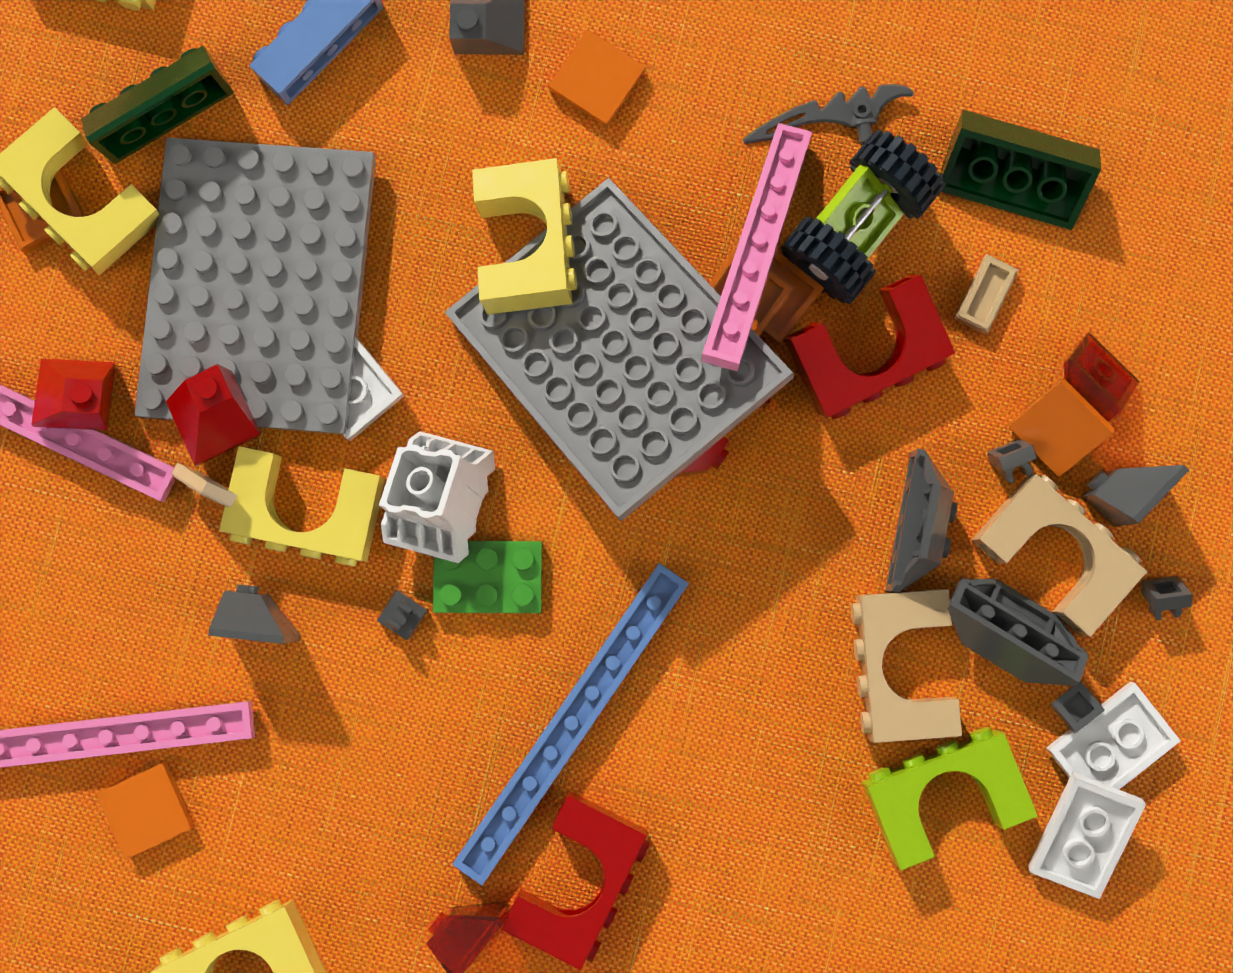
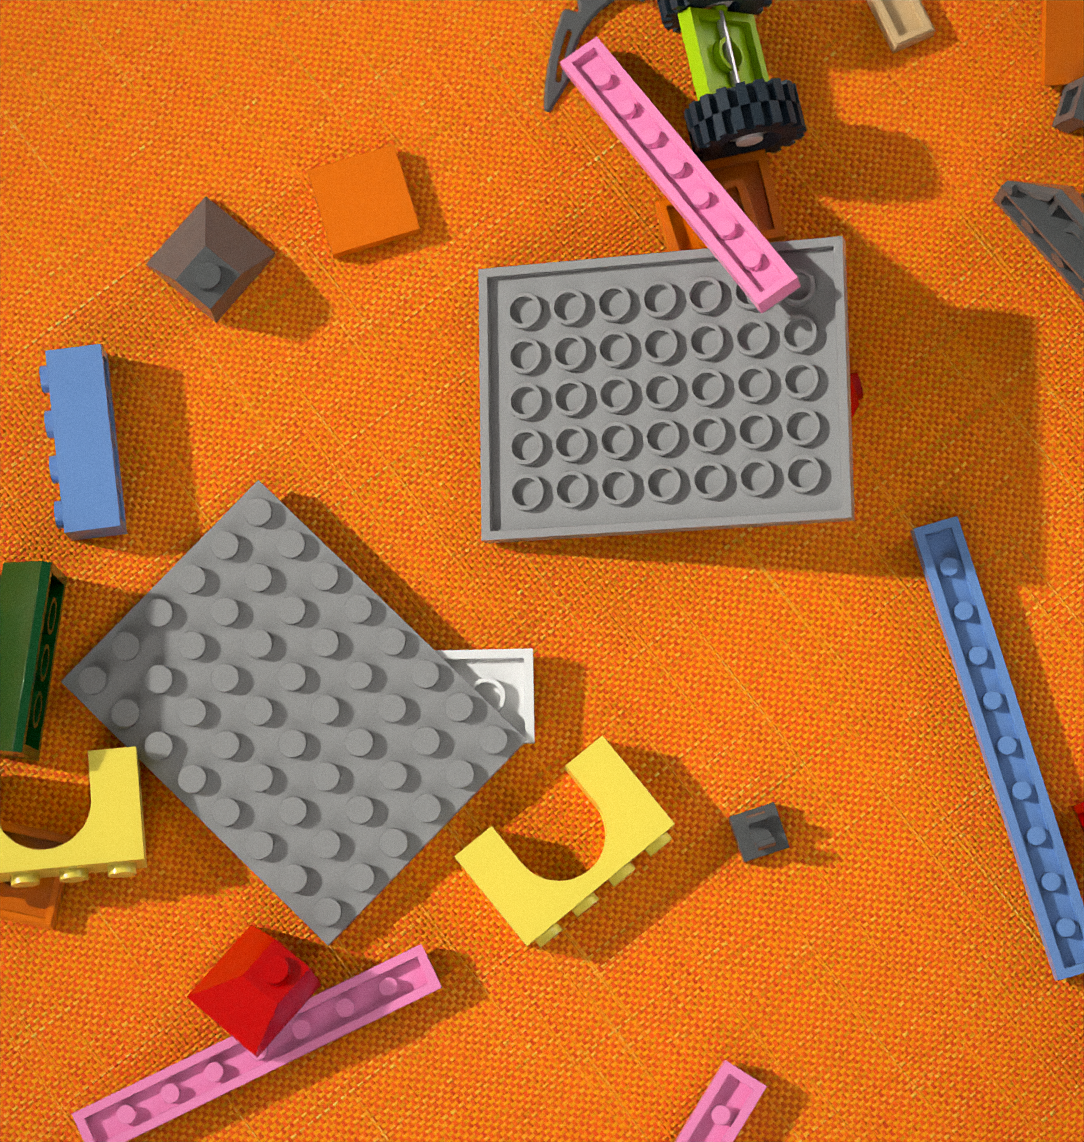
camera: 60 degrees left, 5 degrees down
(204, 485) = (467, 923): tan tile -> none
(212, 414) = (400, 859): red slope -> none
(251, 617) = (643, 984): dark grey slope -> none
(435, 495) = (667, 697): white slope -> none
(490, 579) = (788, 714): bright green plate -> none
(545, 275) = (440, 346): light yellow arch -> none
(918, 346) = (897, 106): red arch -> none

